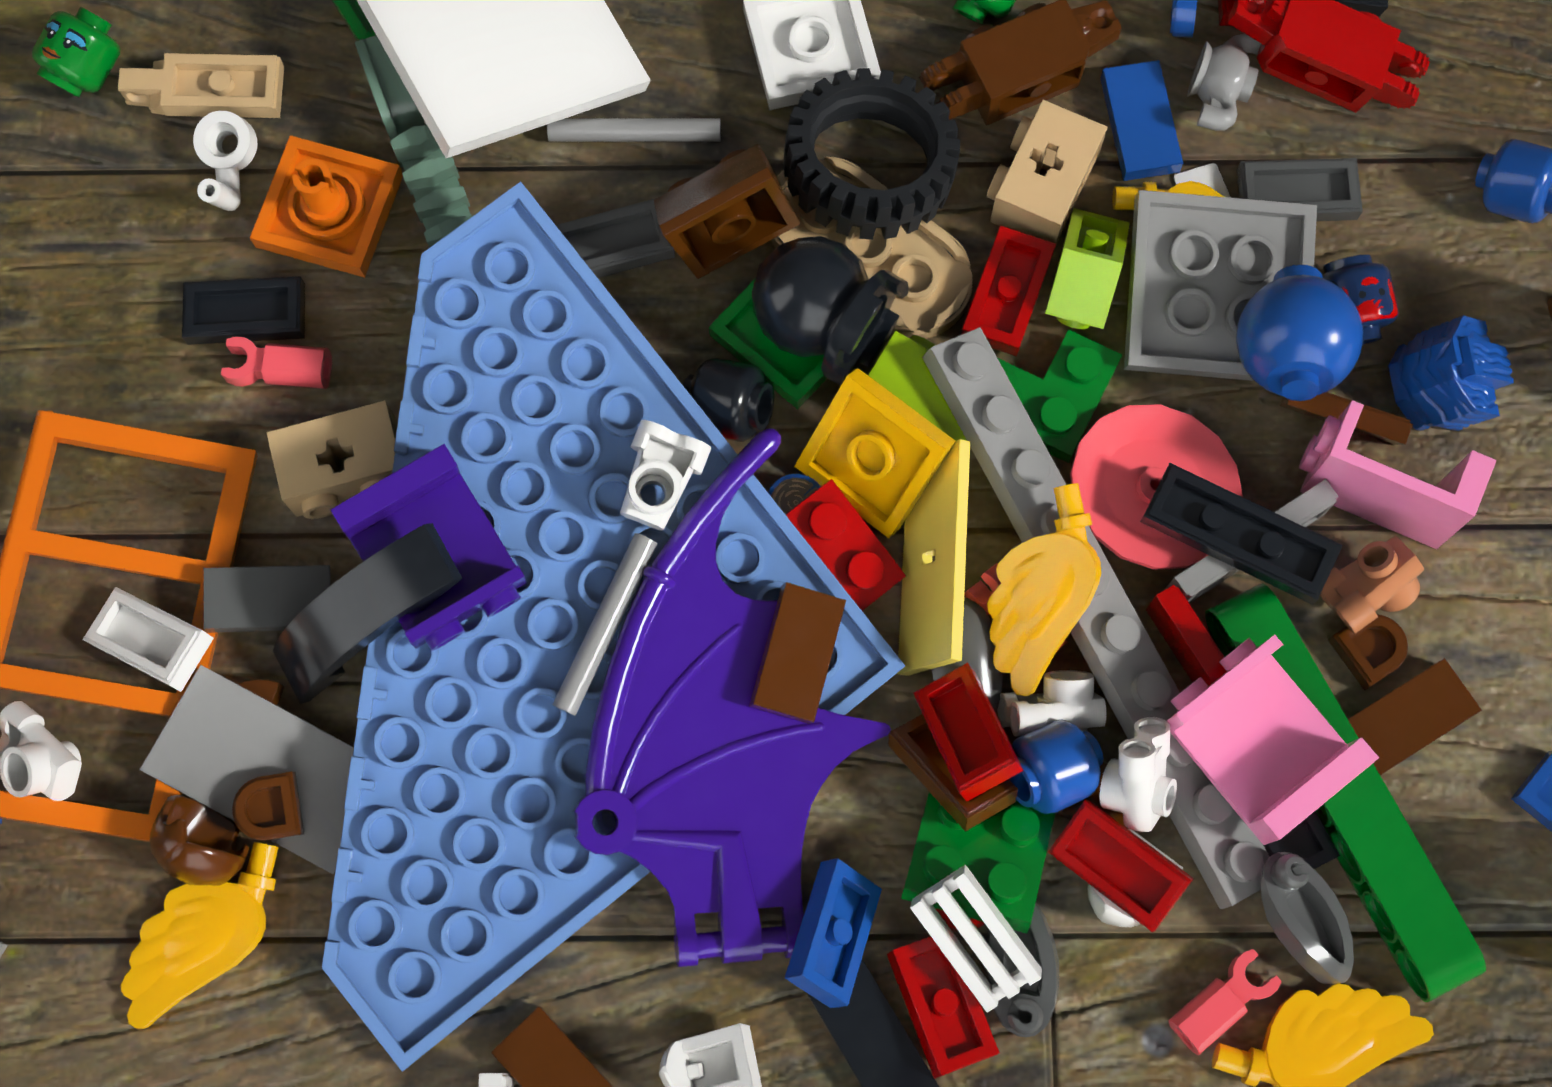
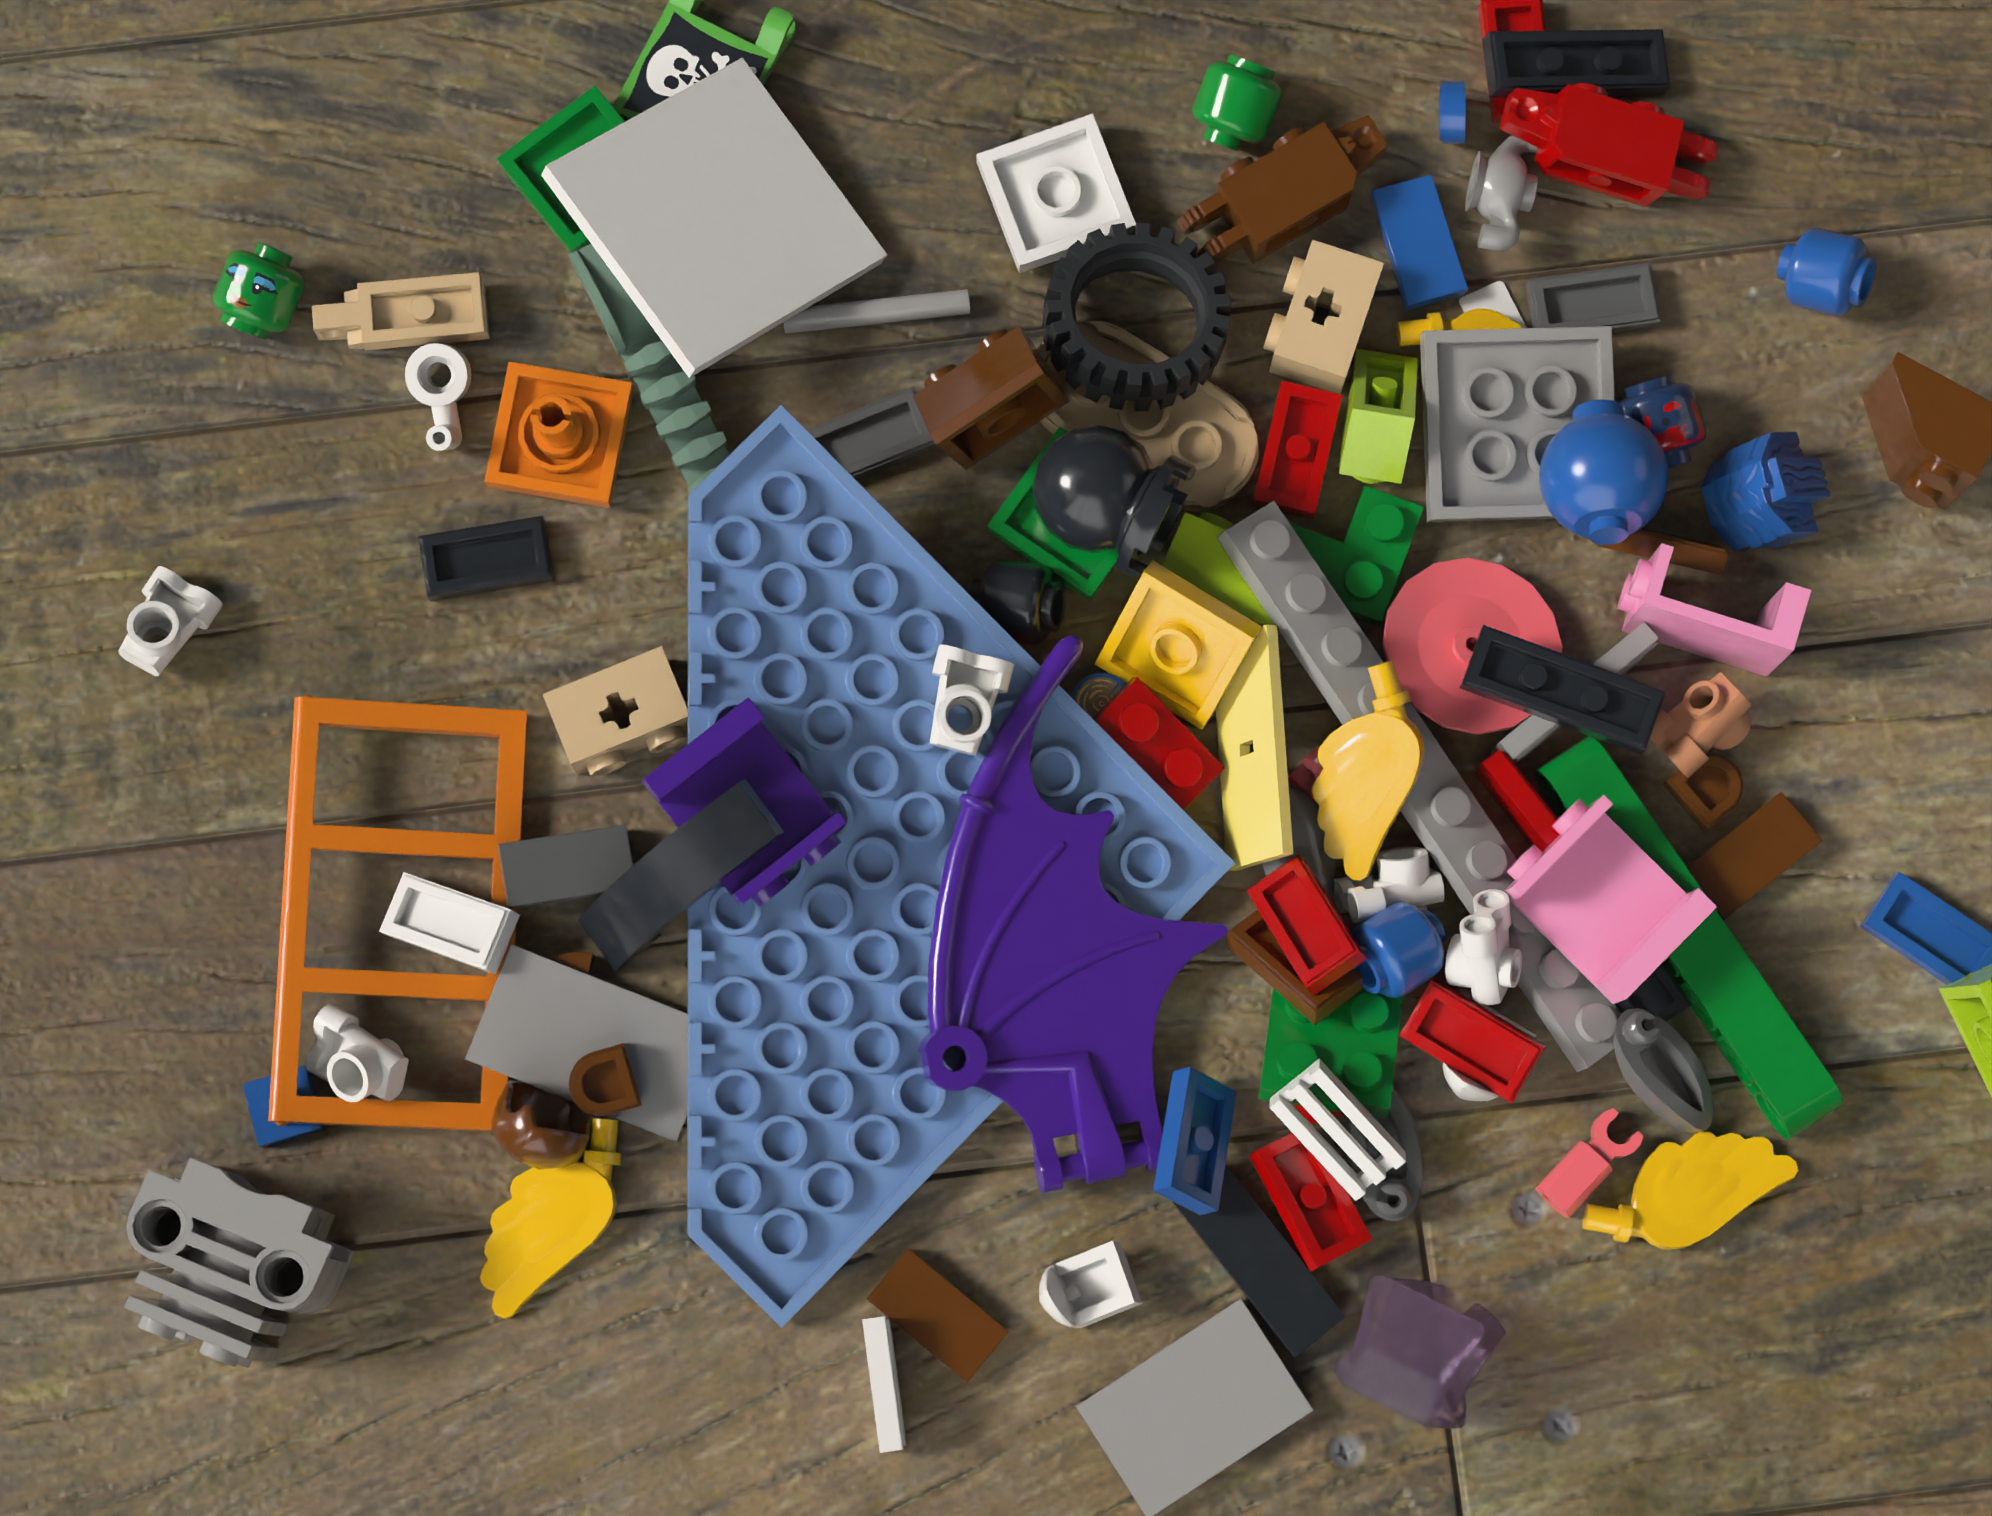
camera: 10 degrees left, 5 degrees up
(279, 365) = (536, 615): coral bar -> none
(604, 624) = (927, 857): light grey bar -> none
(797, 653) = (1126, 864): reddish brown tile -> none

